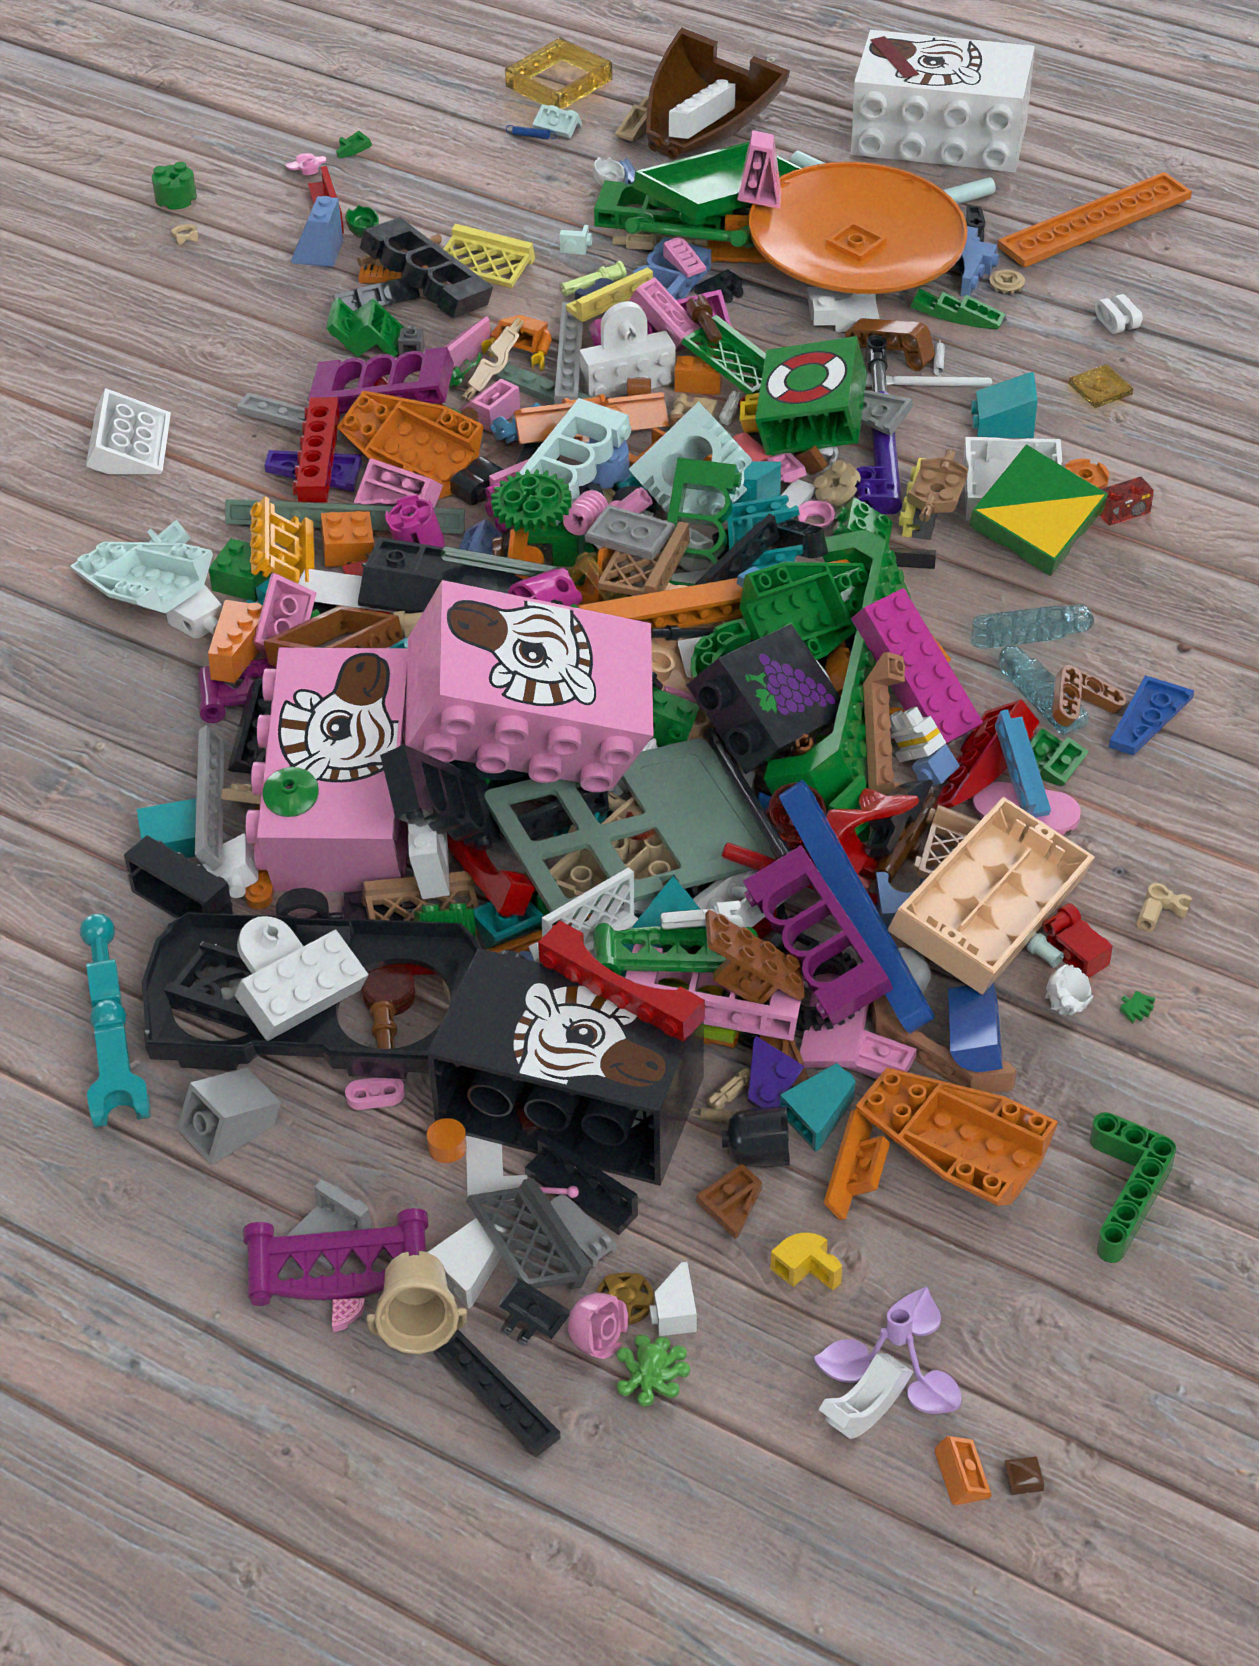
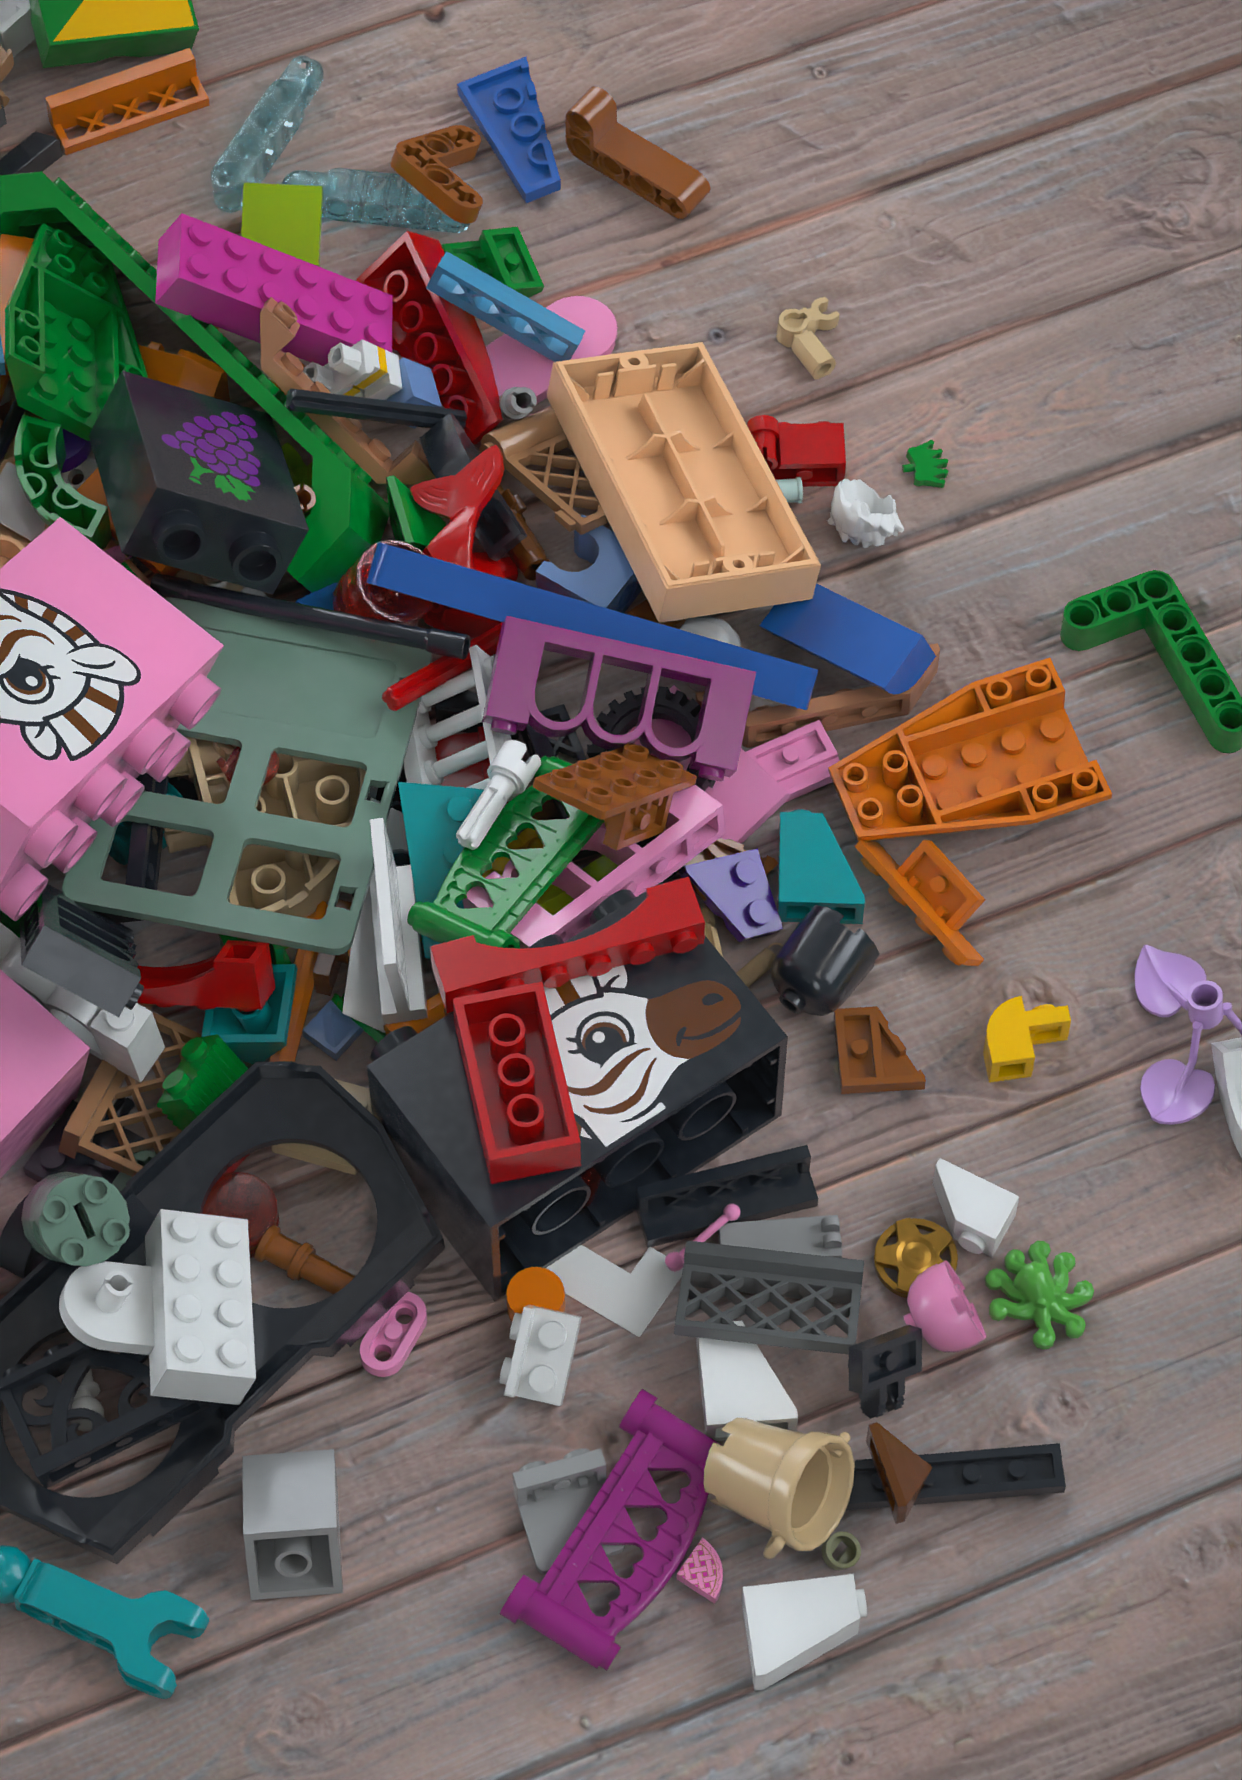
camera: 55 degrees left, 15 degrees up
(300, 899) = (75, 1218): none -> sand green cylinder
(343, 1372) = (798, 1623): none -> white slope
(406, 1360) = (848, 1556): none -> olive hinge
(410, 1156) = (540, 1354): none -> white bracket
(469, 1358) = (898, 1469): none -> reddish brown slope
(513, 1003) = (517, 1082): none -> red brick
(894, 745) = (369, 409): none -> black axle
(969, 804) = (517, 402): none -> light grey pin
(981, 661) = (284, 218): none -> lime tile
(993, 565) = (122, 95): none -> orange fence
(1182, 764) = (630, 159): none -> dark orange beam

